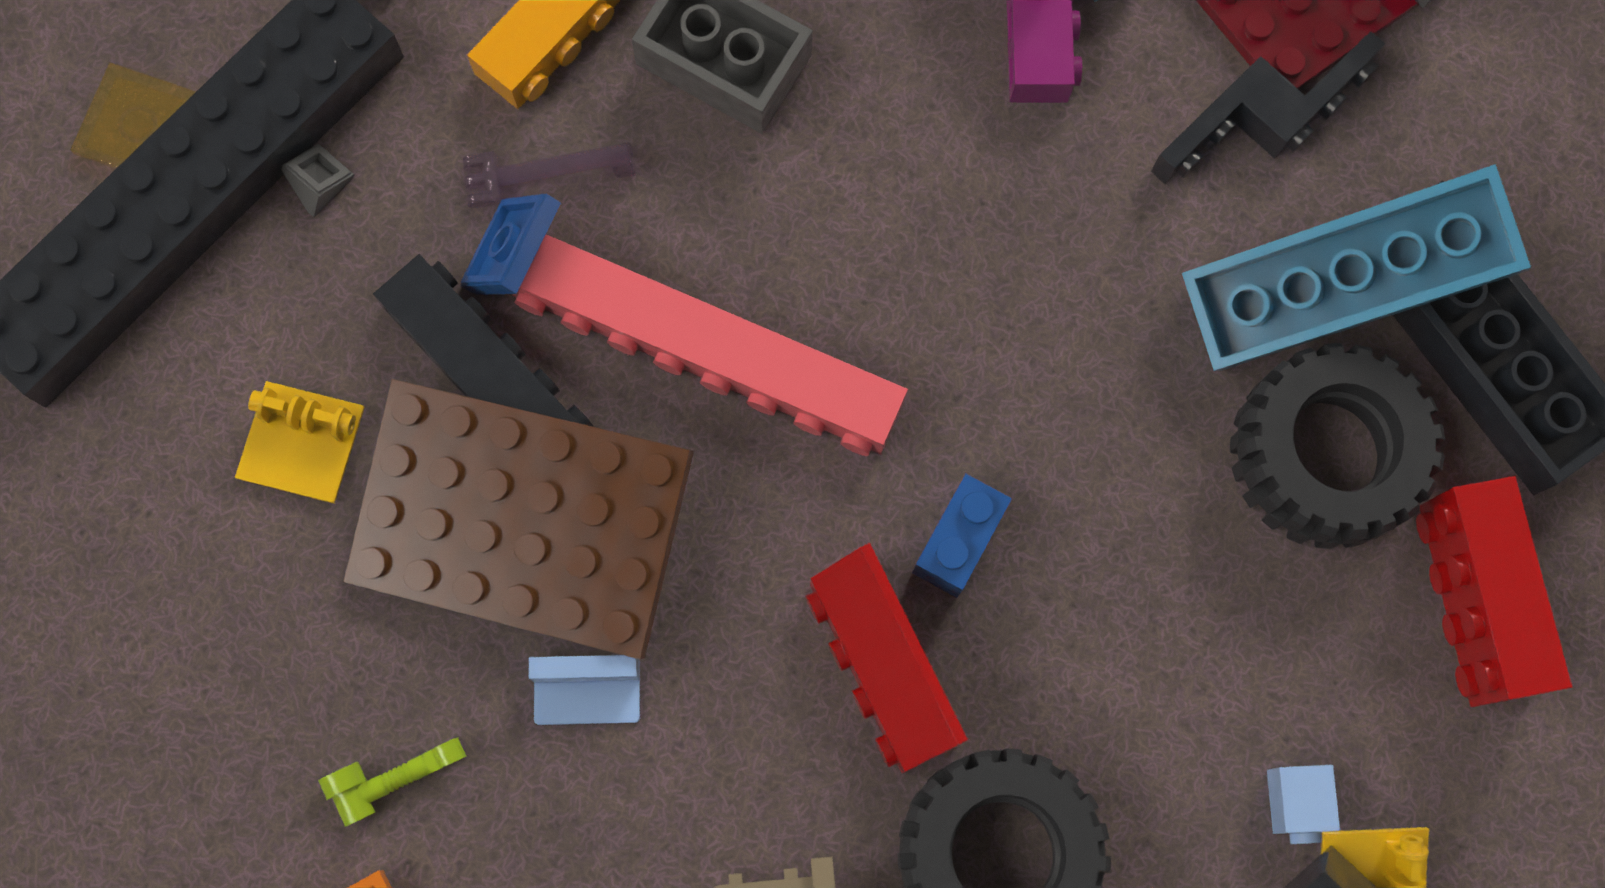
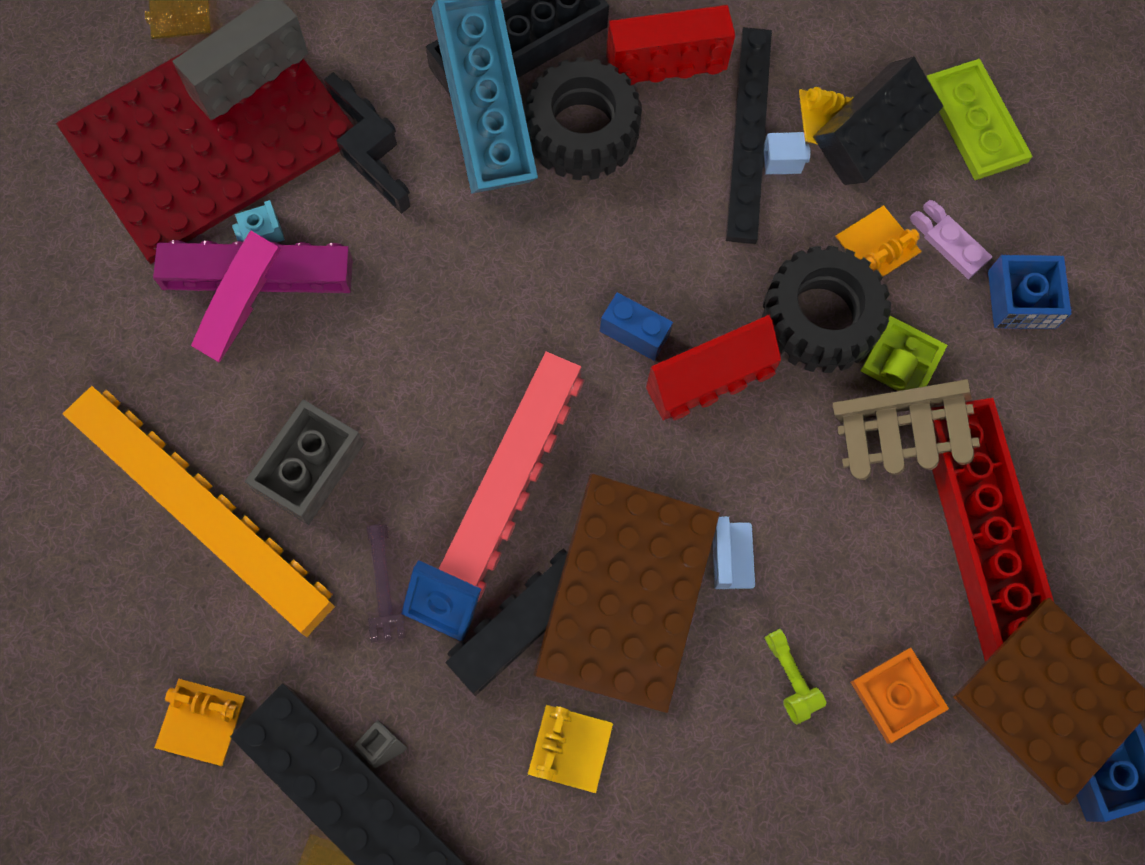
camera: 90 degrees left, 5 degrees down
(1344, 741) = (749, 136): none -> black plate

